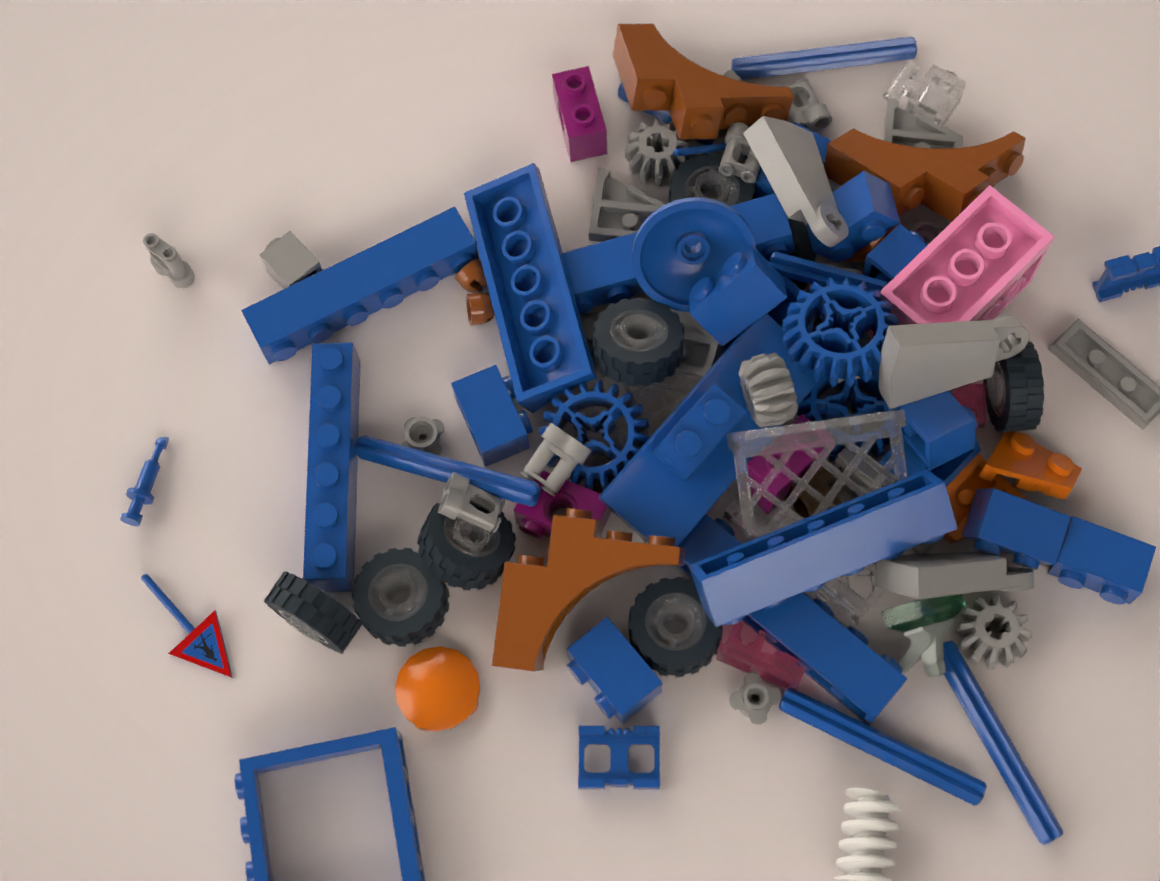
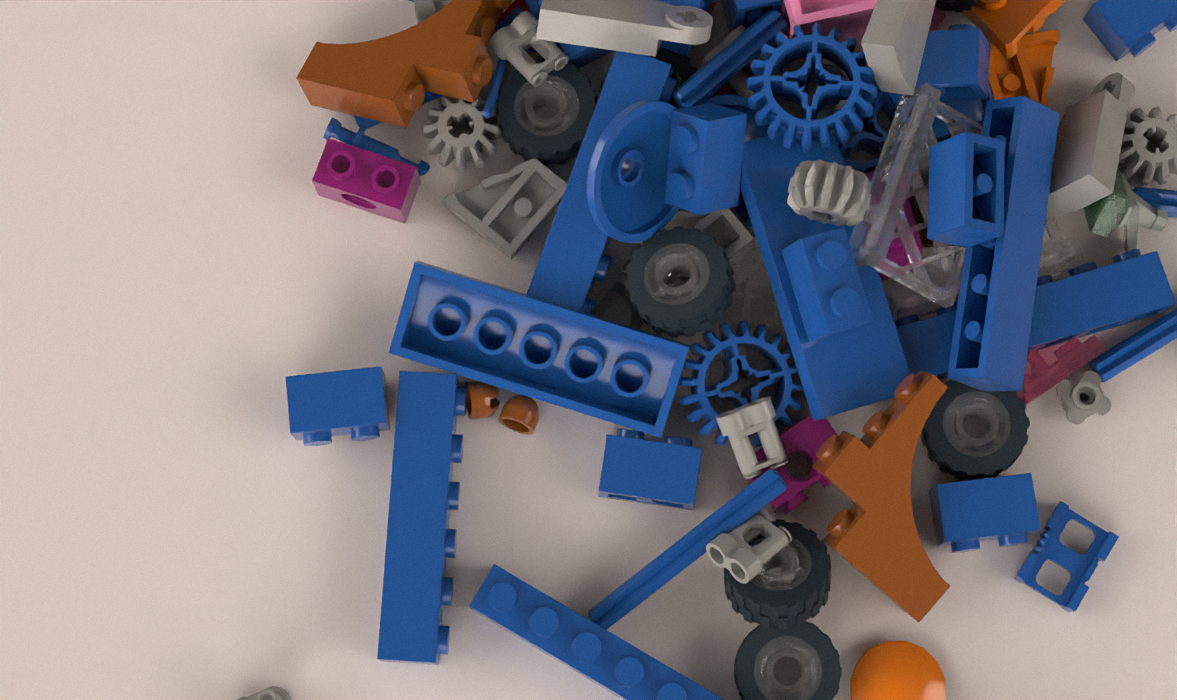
camera: 65 degrees left, 10 degrees up
(289, 260) = (347, 577): light grey brick -> none
(407, 185) = (338, 405): none -> blue brick
(418, 426) = (625, 539): light grey plate -> none
(607, 98) = (370, 144): none -> blue piece
(838, 483) = (966, 190): none -> blue brick
(1015, 527) = (1072, 60): blue brick -> none

